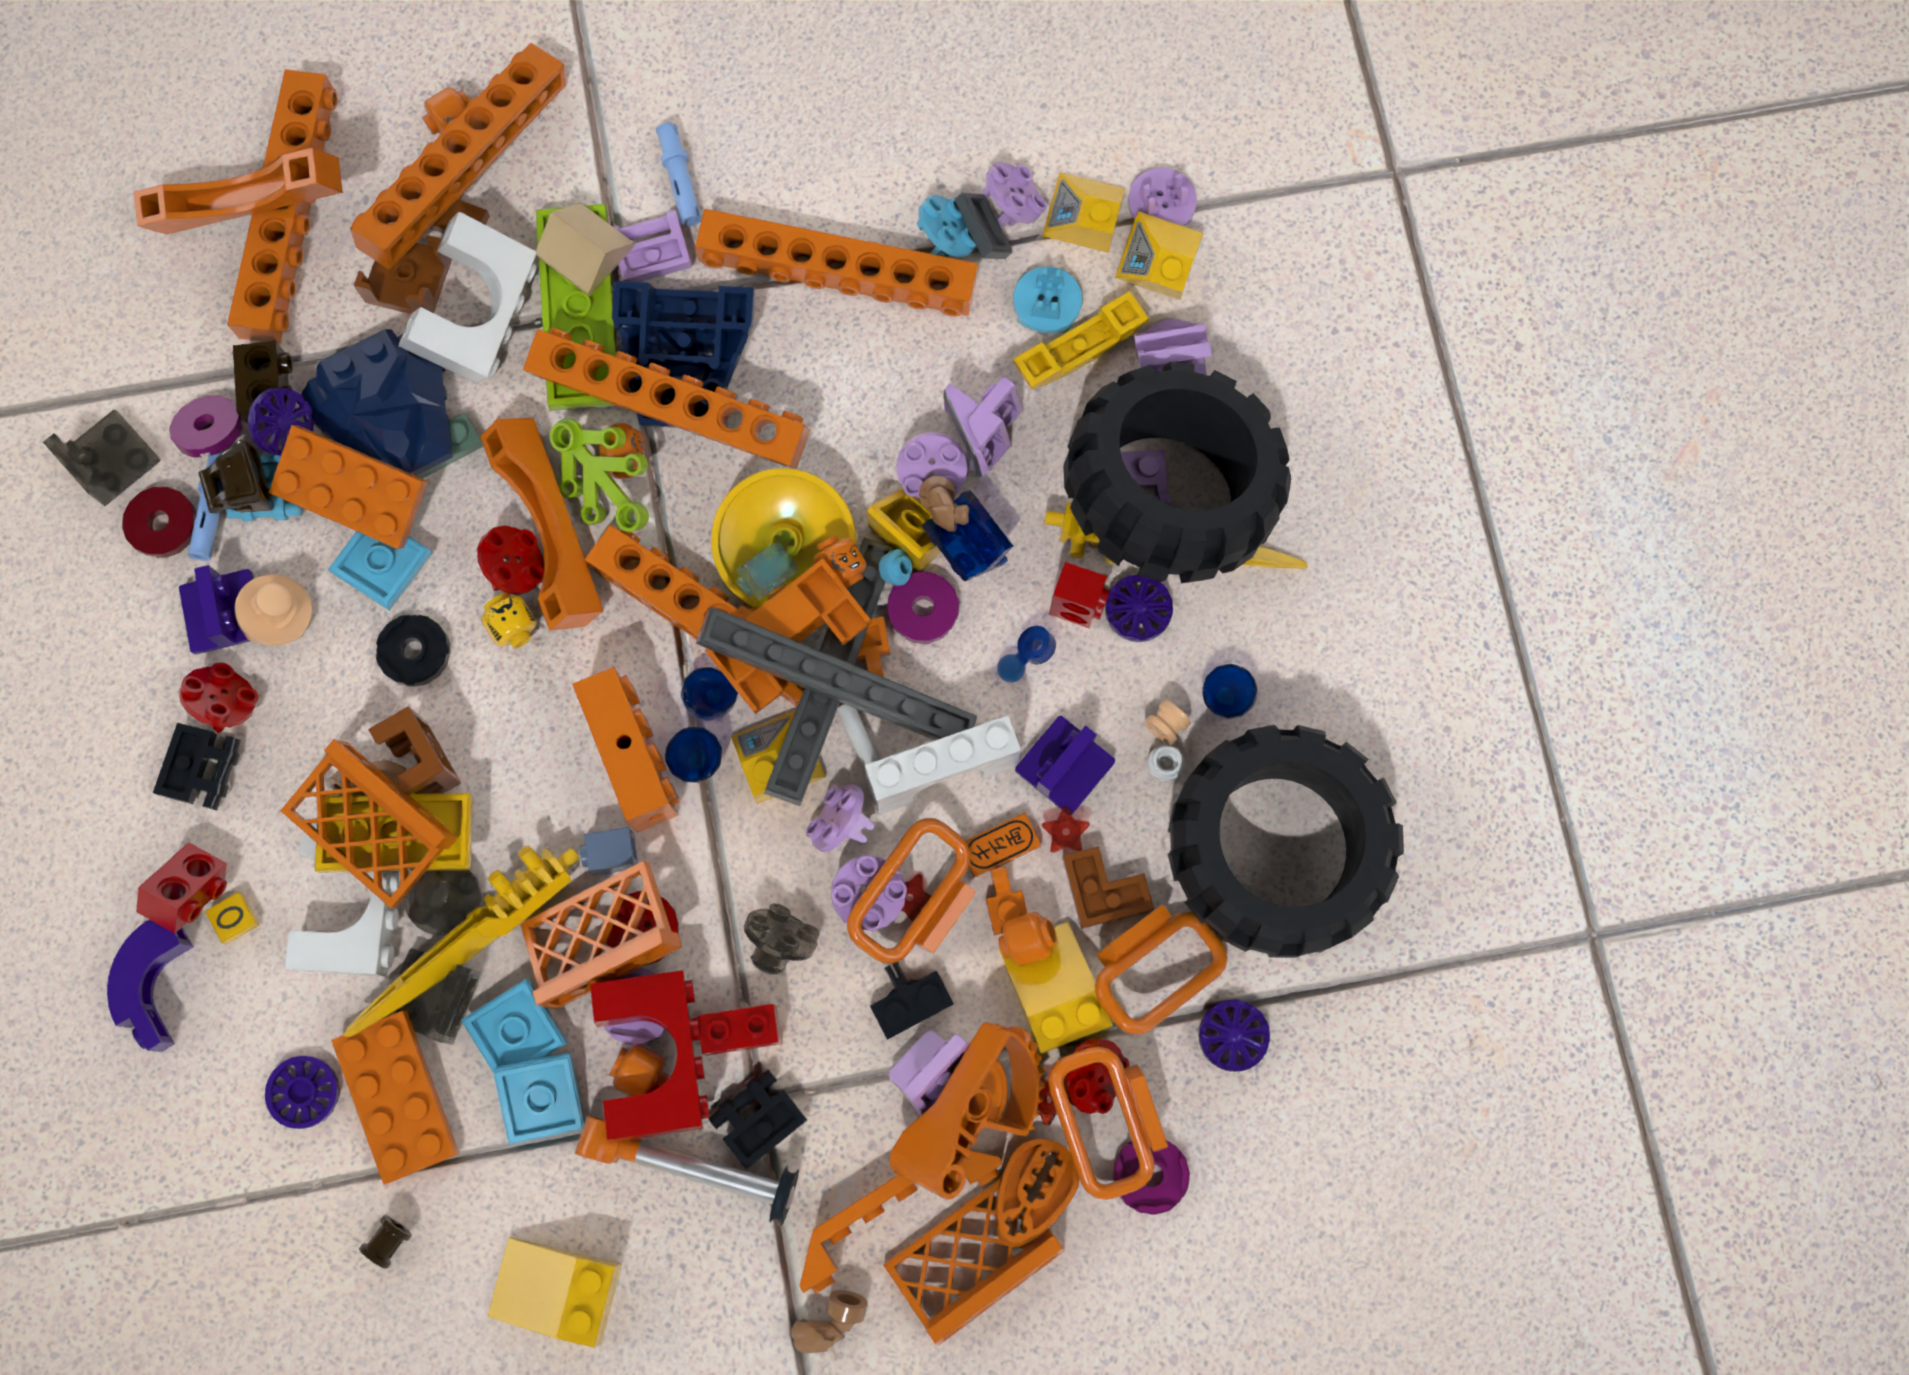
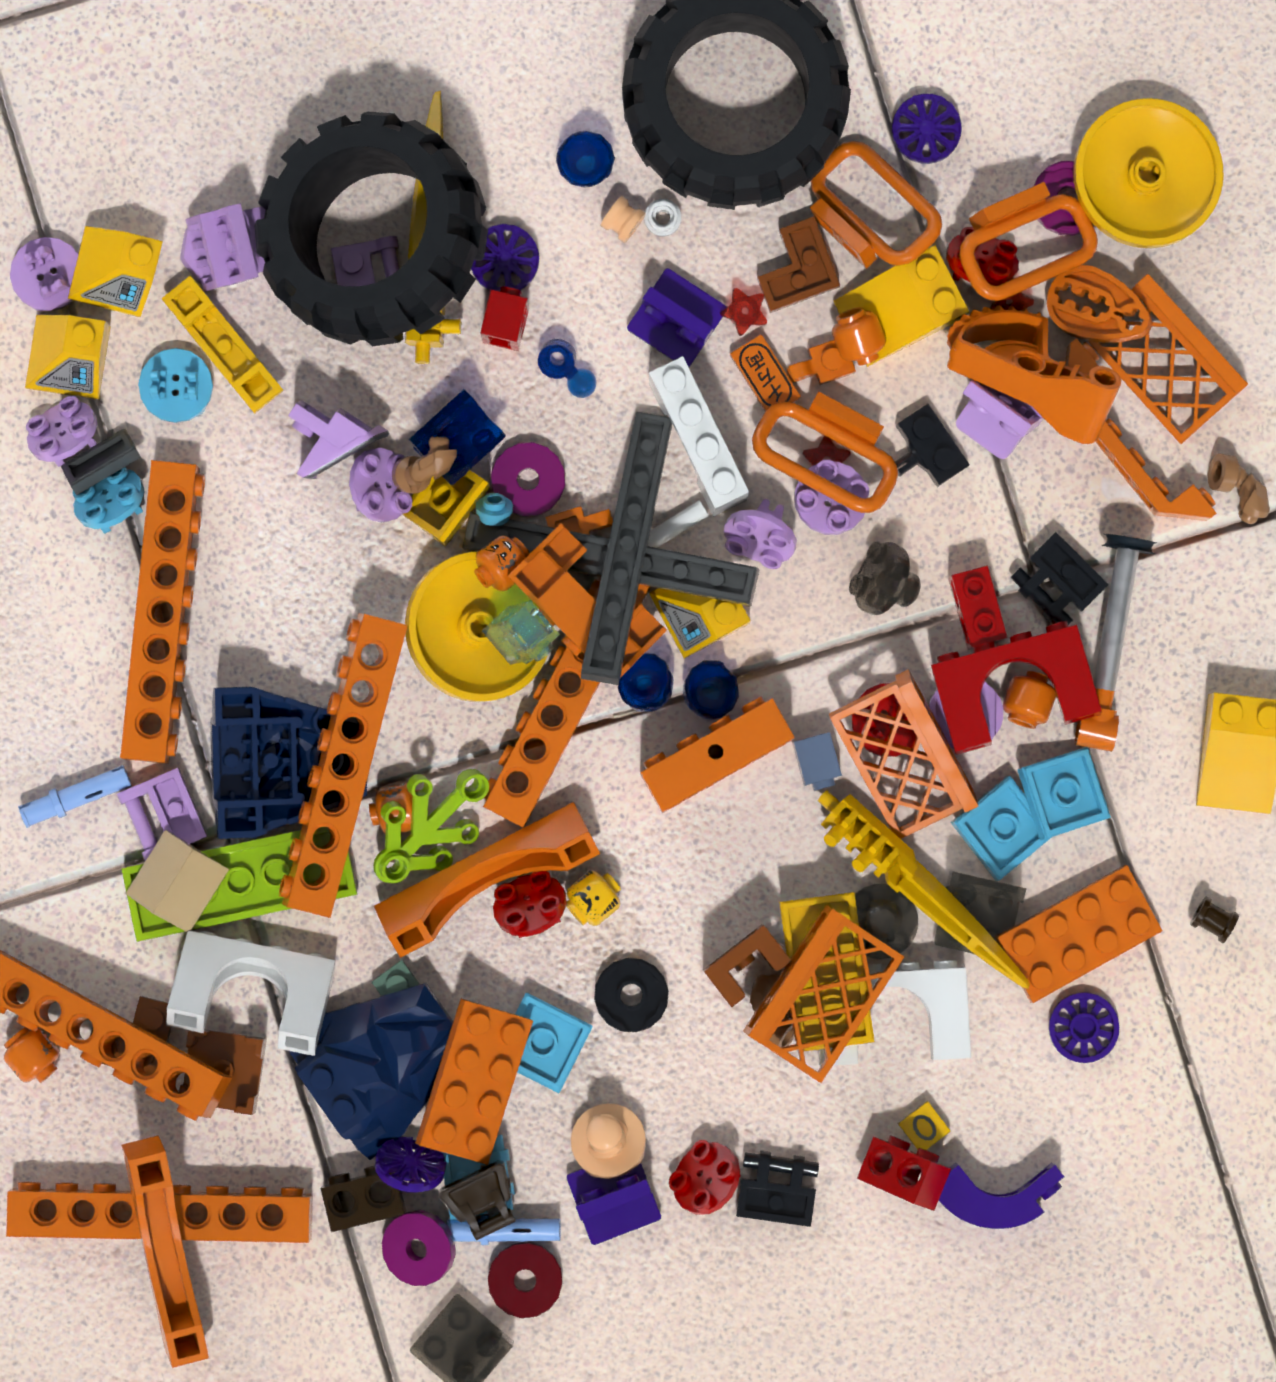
camera: 95 degrees left, 10 degrees up
(1168, 1262) = (1148, 173): none -> yellow dish

